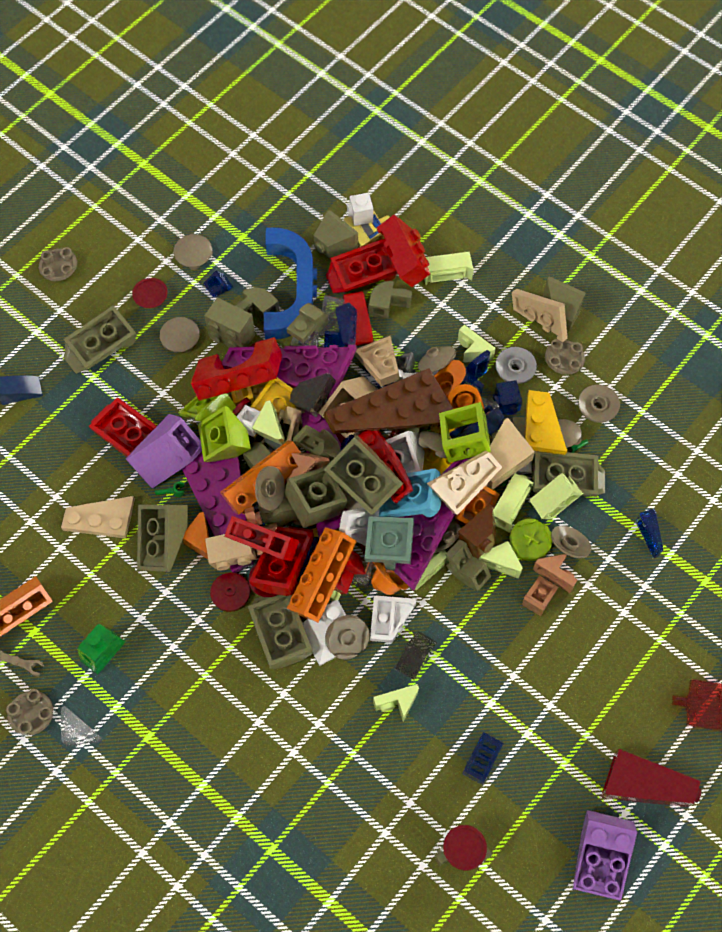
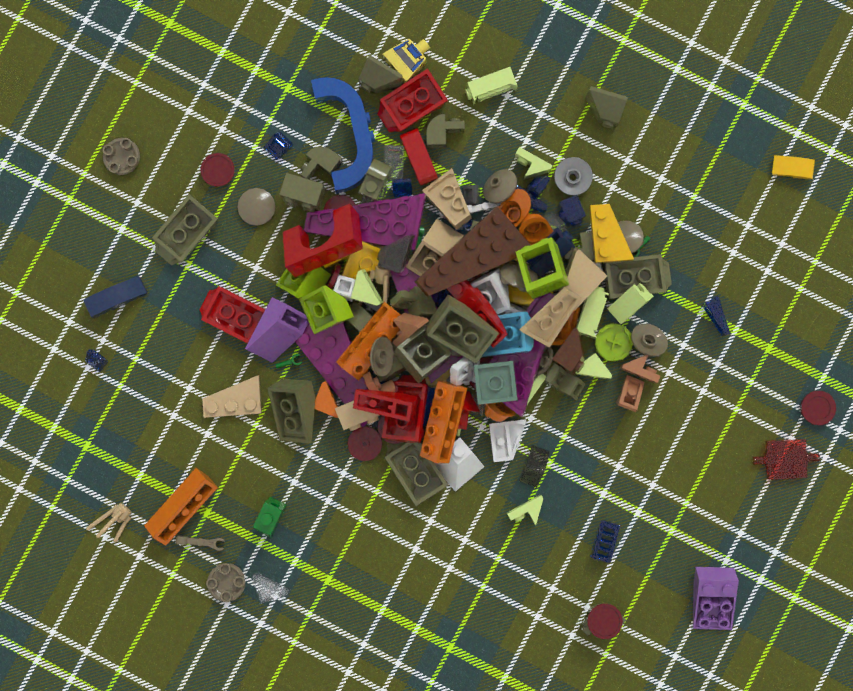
camera: 10 degrees left, 20 degrees up
(193, 251) = (245, 114): dark tan dish -> none
(347, 323) = (412, 173): clear blue slope -> none
(347, 636) = (474, 466): dark tan tile -> none
(360, 209) = (398, 45): white brick -> none
(406, 250) = (451, 79): red wedge -> none
(543, 310) = (581, 114): tan wing -> none
(565, 356) = (616, 156): dark tan dish -> none
(601, 396) = (661, 193): dark tan dish -> none
(647, 782) = (736, 534): dark red slope -> none

